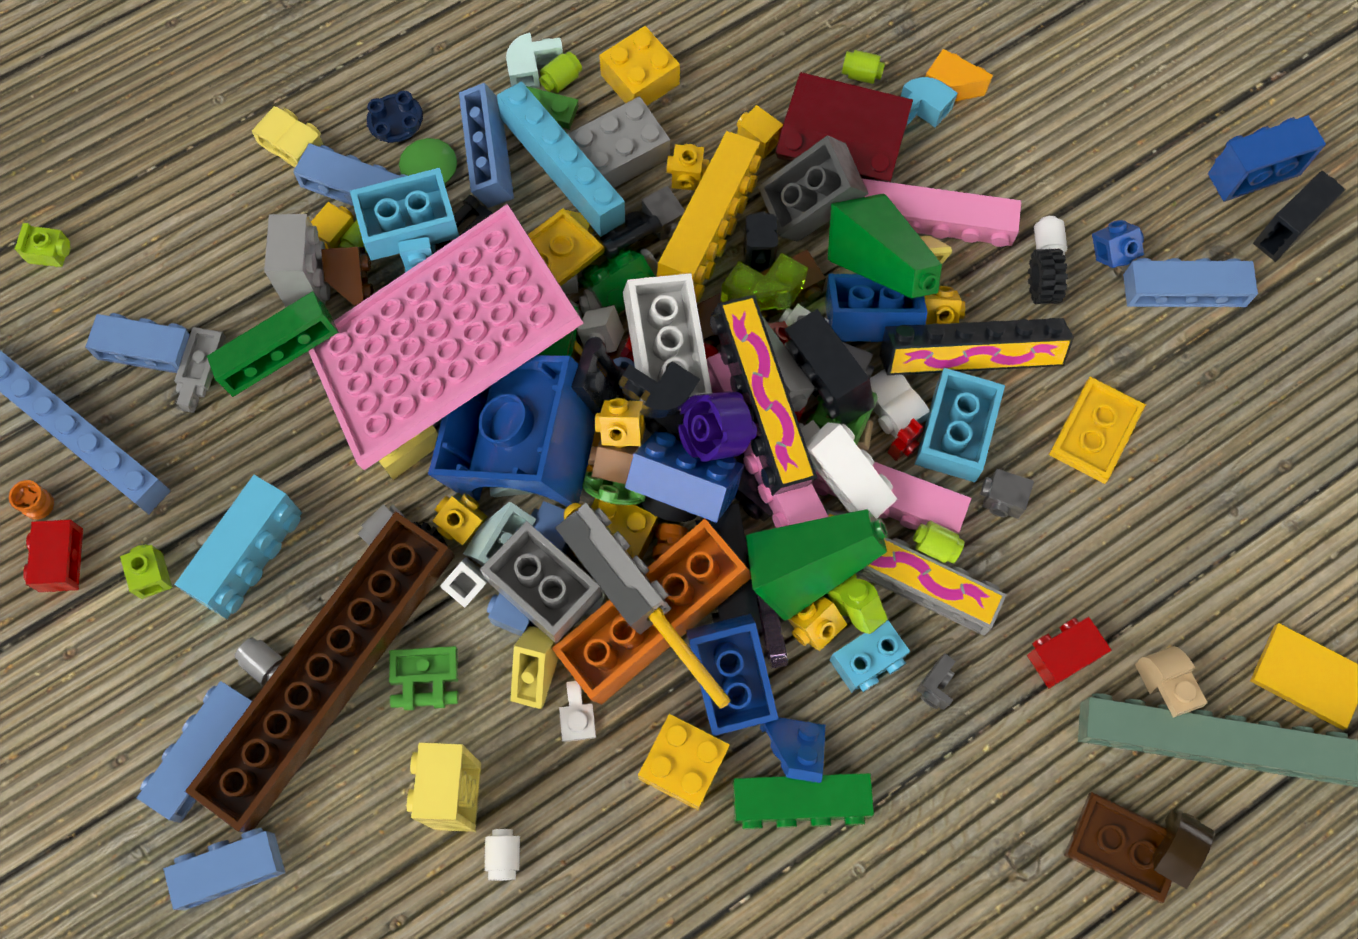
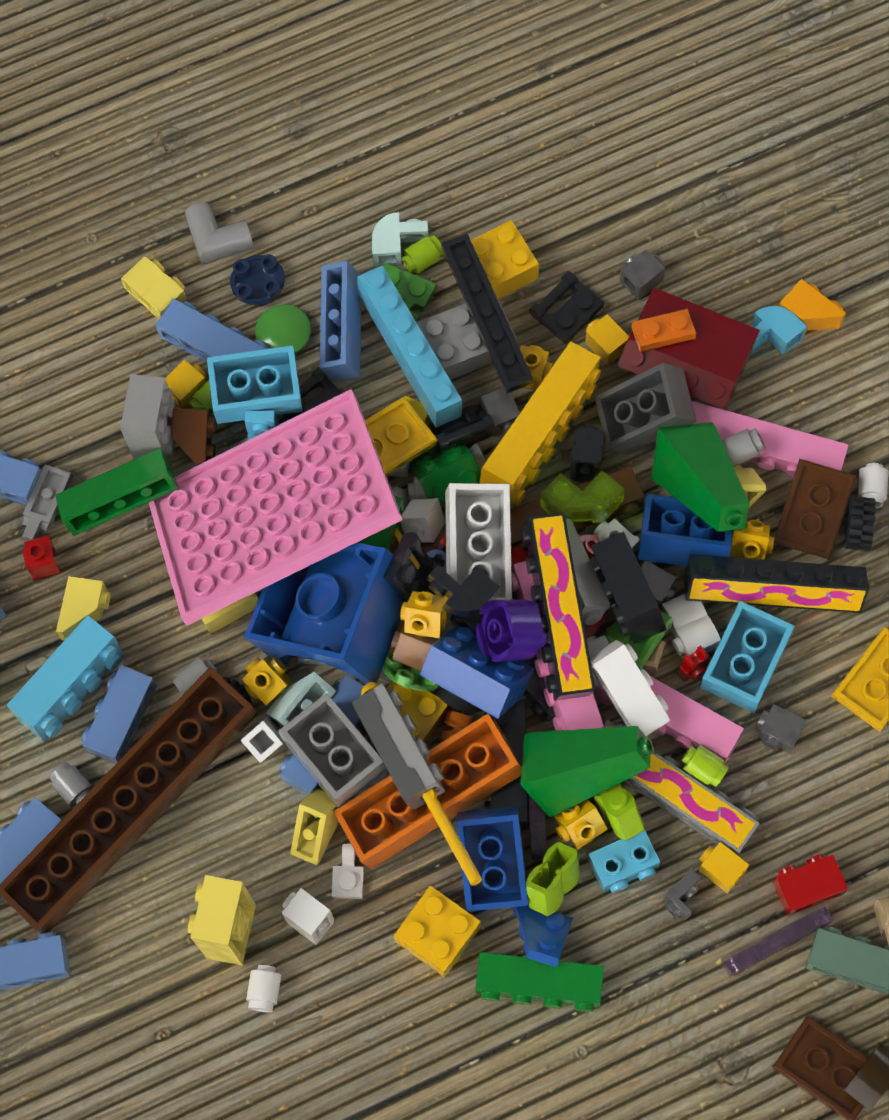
camera: 15 degrees right, 0 degrees up
(197, 424) = (40, 558): none -> red window
(246, 459) = (81, 599): none -> light yellow slope
(303, 577) = (118, 714): none -> medium blue brick
(342, 86) = (212, 241): none -> light grey brick
(420, 667) = (215, 811): bright green plate -> none
(539, 766) = (307, 915): none -> white brick
(636, 115) = (487, 313): none -> black plate
(719, 114) = (573, 314): none -> black plate
(783, 65) = (642, 273): none -> flat silver brick
(799, 686) = (553, 878): none -> lime brick
(818, 110) = (663, 330): none -> orange plate
(863, 66) = (720, 285): lime brick -> none
(921, 211) = (743, 446): none -> light grey brick
(974, 646) = (722, 866): none -> yellow brick
(998, 268) = (814, 509): none -> reddish brown tile
(1046, 718) = (777, 941): none -> clear purple beam

